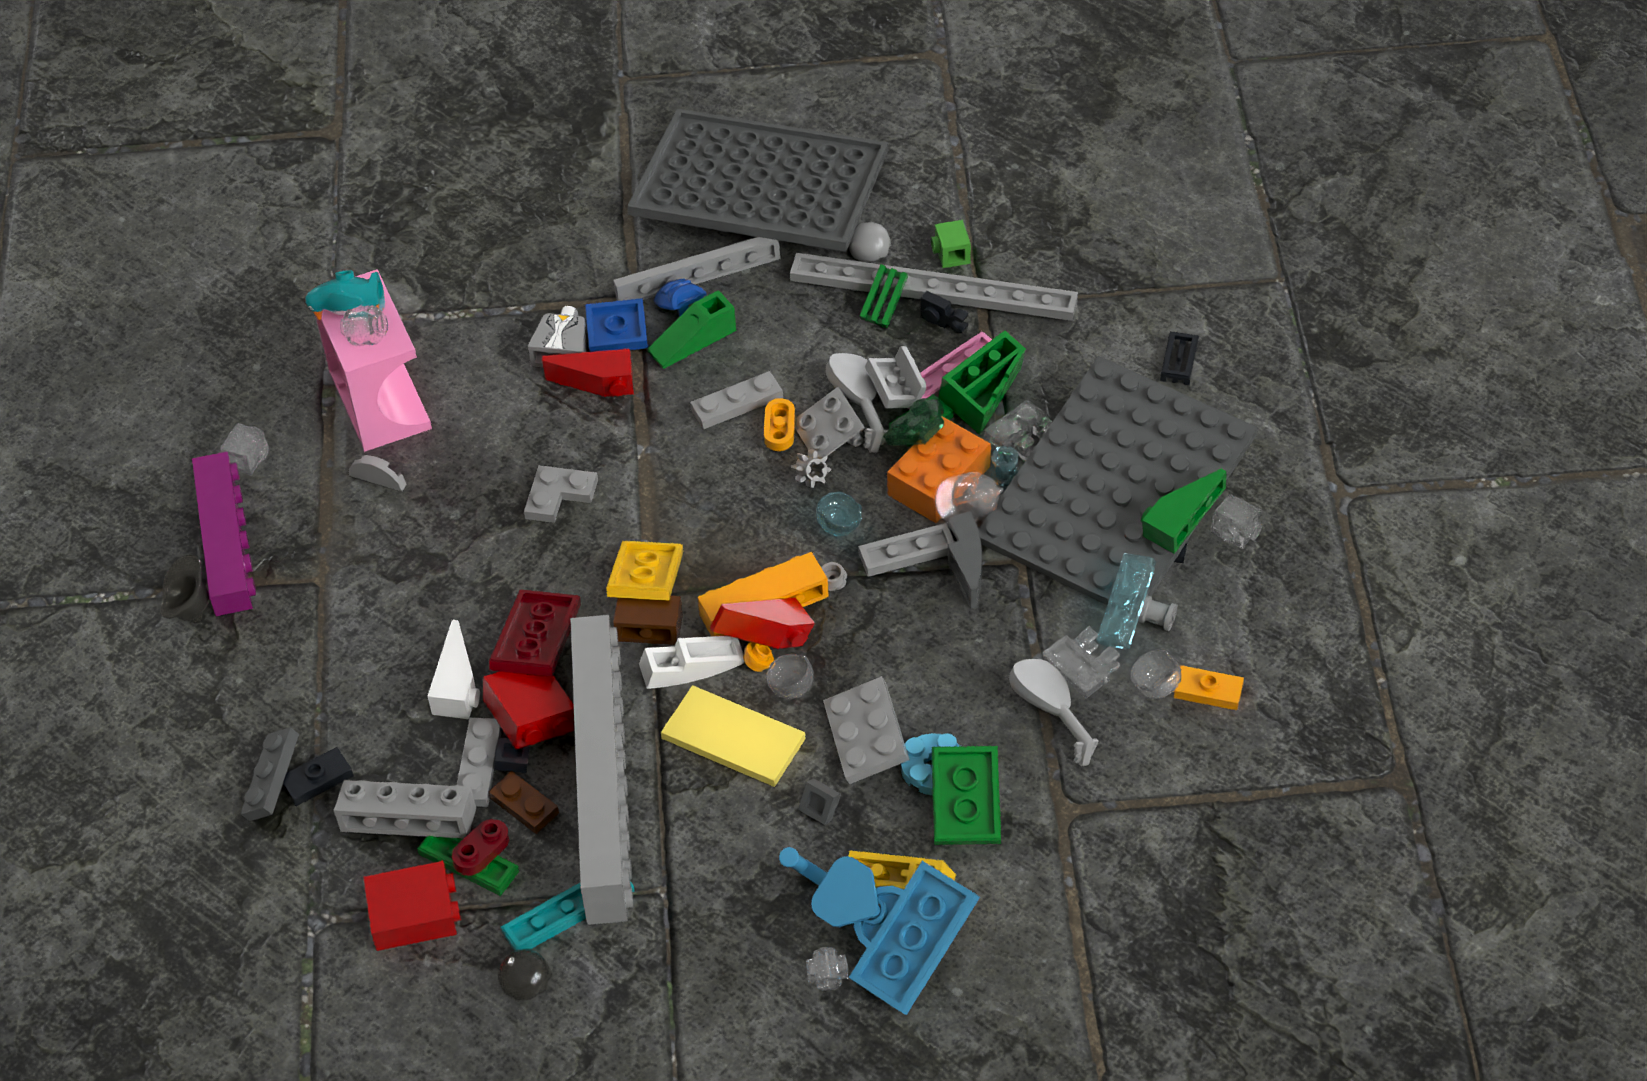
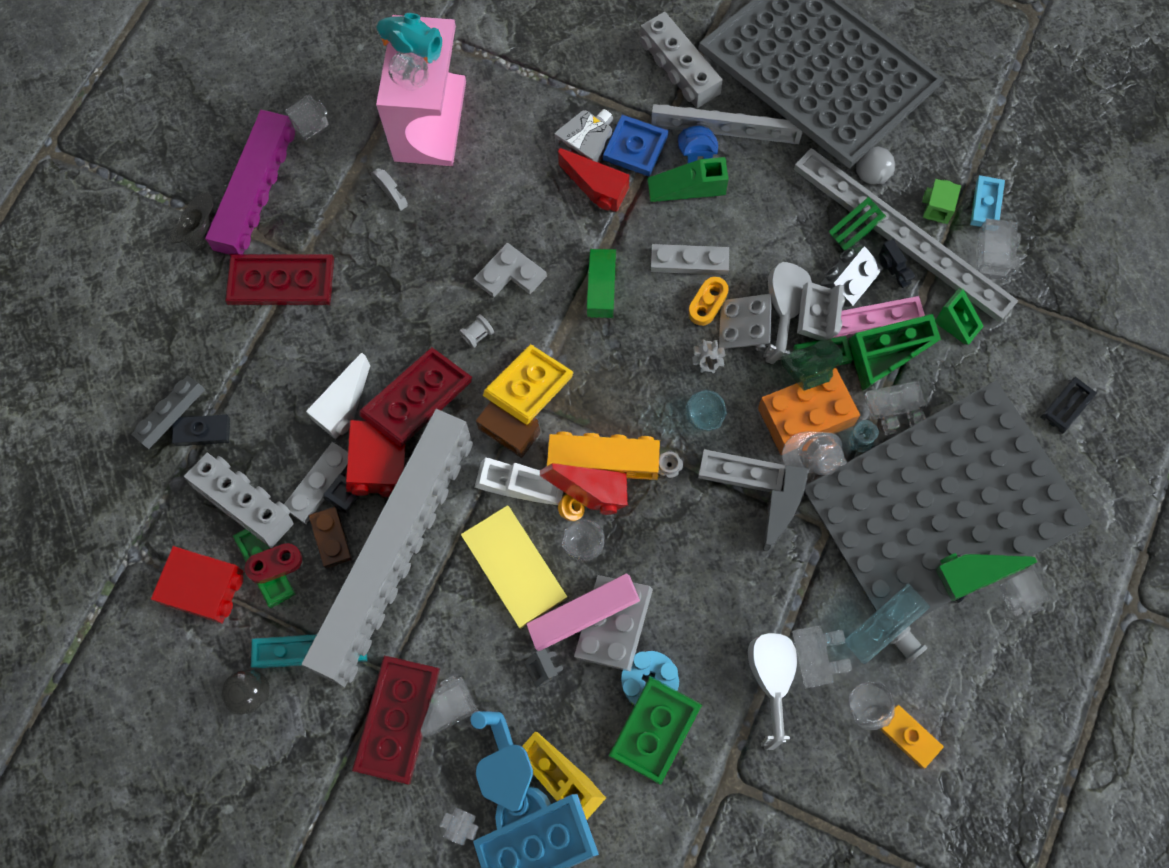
camera: 30 degrees right, 20 degrees up
(311, 606) = (280, 279): none -> dark red tile
(558, 554) = (476, 331): none -> light grey bush
(614, 233) = (680, 60): none -> light grey brick
(662, 457) = (601, 283): none -> green slope
(701, 922) = (395, 720): none -> dark red tile
(750, 877) = (448, 706): none -> clear slope
(830, 731) = (583, 612): none -> bright pink tile
(907, 331) = (853, 271): none -> bracket
(996, 227) = (987, 200): none -> medium azure plate
(1031, 259) = (998, 248): none -> clear brick
(1033, 329) = (960, 318): none -> green slope

